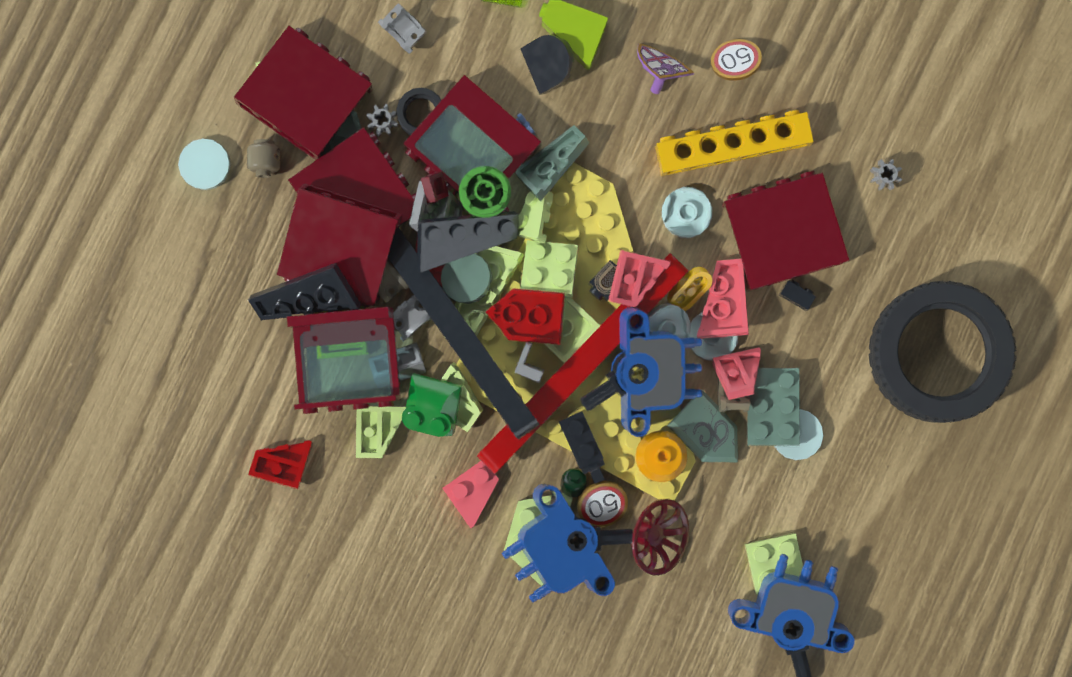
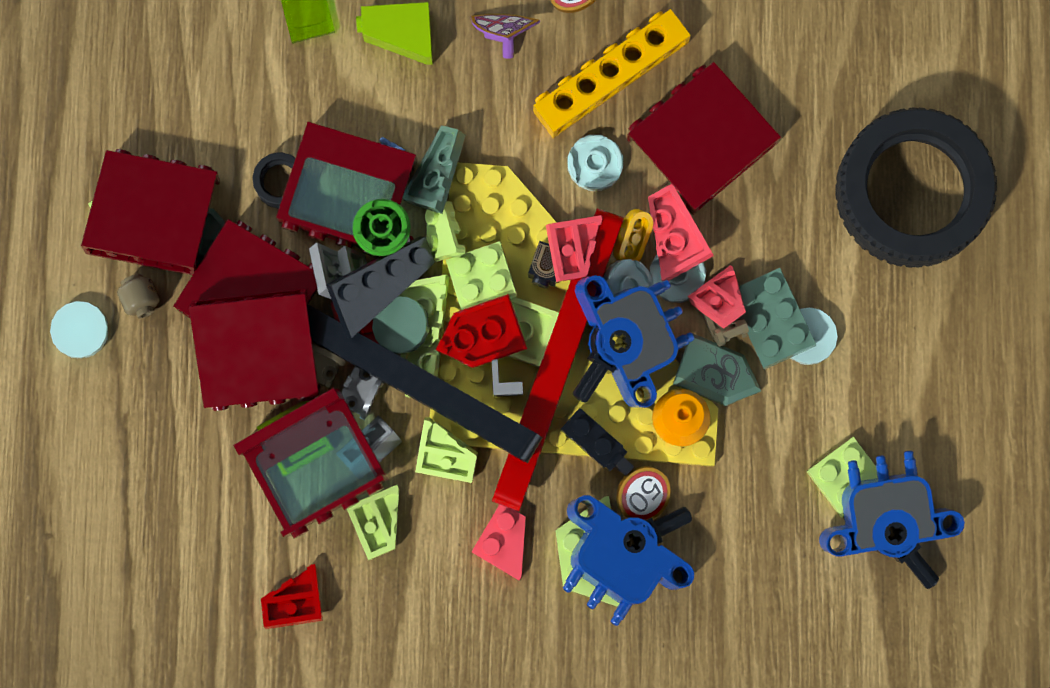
camera: 25 degrees left, 5 degrees down
(310, 293) = (246, 411): black wing -> none
(379, 114) = (237, 202): light grey gear -> none
(403, 27) = (224, 102): light grey piece -> none
(432, 406) = (423, 471): green slope -> none
(434, 187) = (327, 246): dark red tile -> none
(548, 61) = (387, 72): black tile -> none
(573, 482) = (603, 485): dark green piece -> none
(653, 534) = (709, 500): dark red wheel -> none
(797, 295) = (744, 196): black piece -> none
(885, 168) = (780, 44): light grey gear -> none

